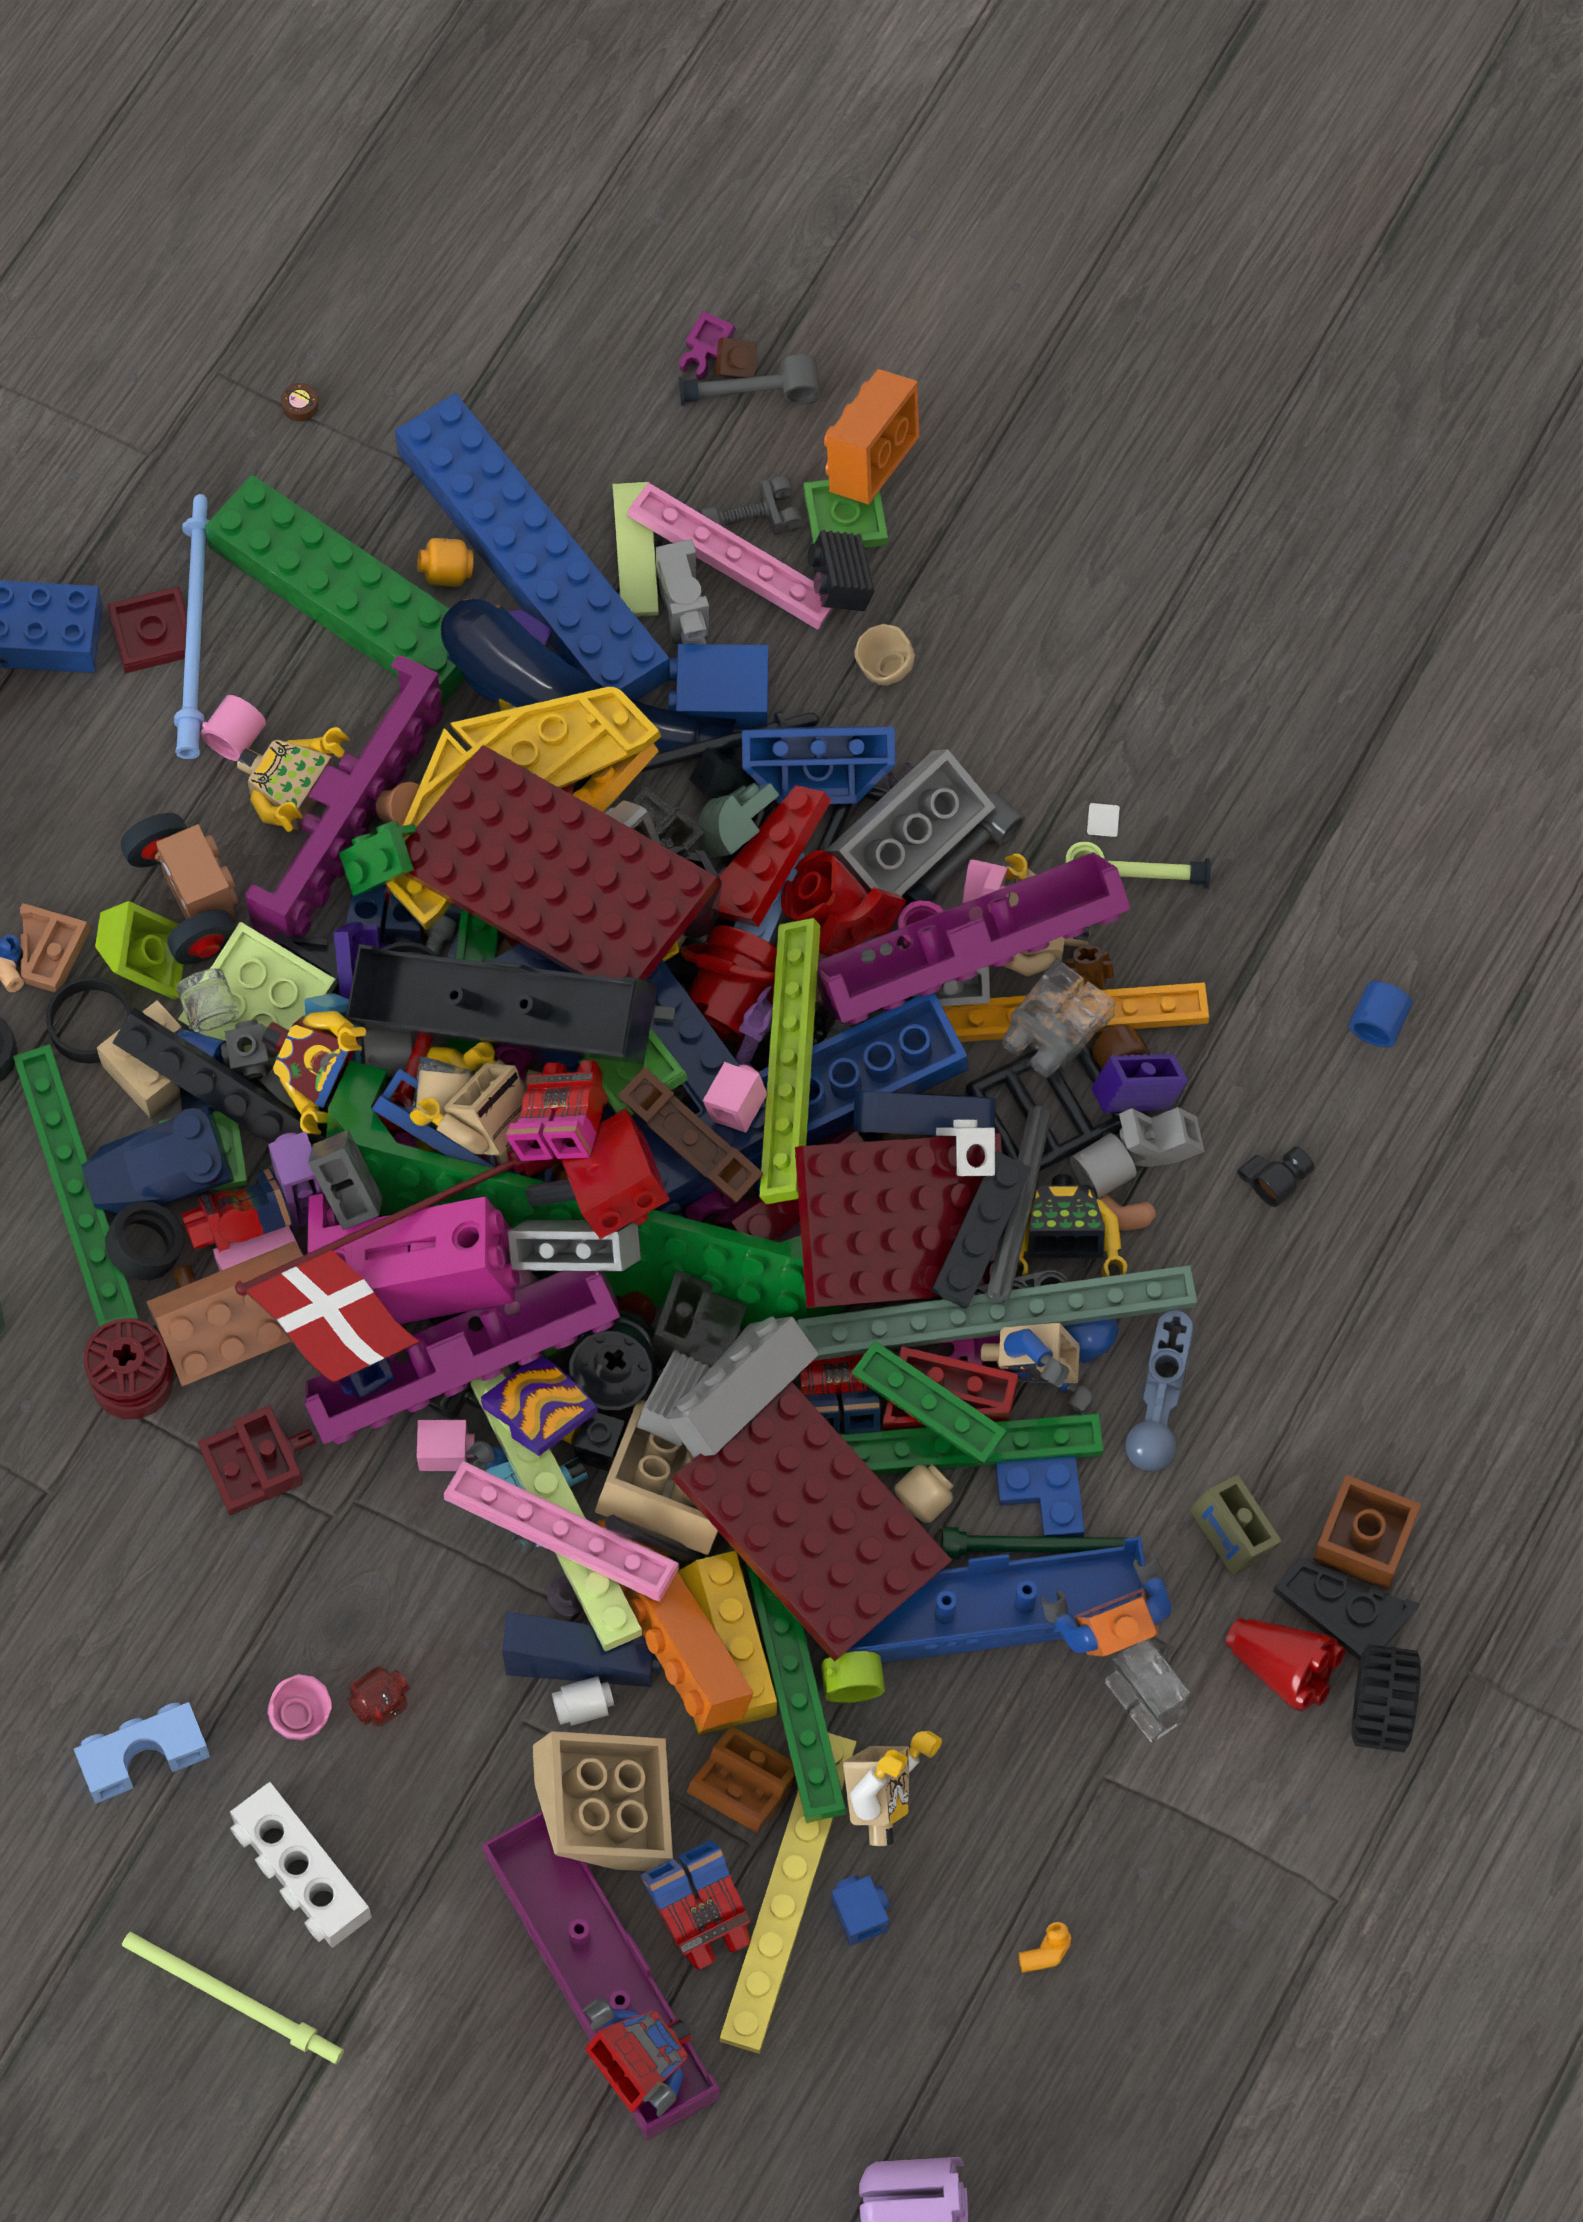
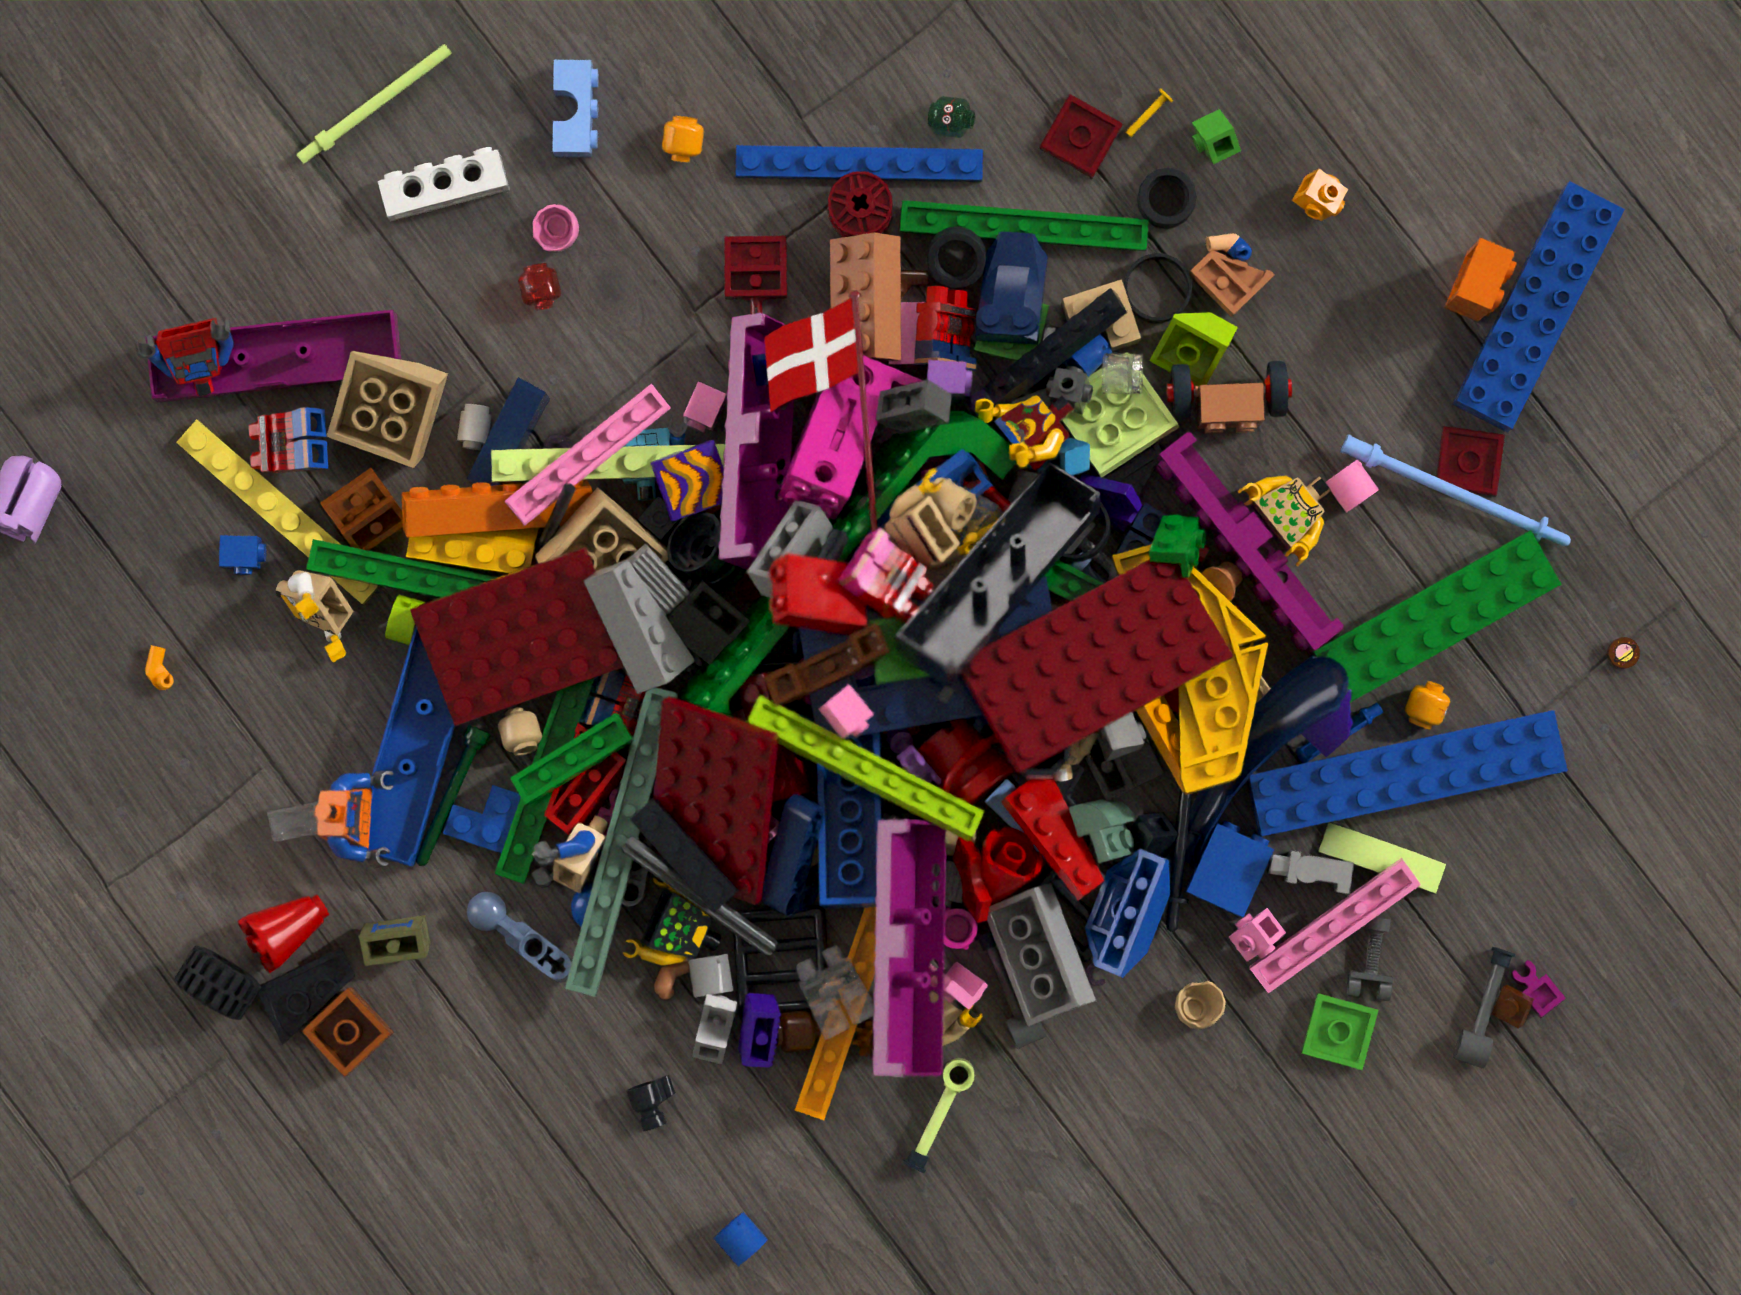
camera: 115 degrees right, 20 degrees up
(75, 1404) = (835, 162): none -> blue plate
(126, 1608) = (682, 138): none -> light orange head
(780, 627) = (1252, 939): none -> bright pink brick
(841, 571) = (1284, 1002): black brick -> none
(872, 436) = (1386, 1076): orange brick -> none
(967, 1135) = (752, 875): white bracket -> none
(1103, 820) = (996, 1111): white sticker -> none

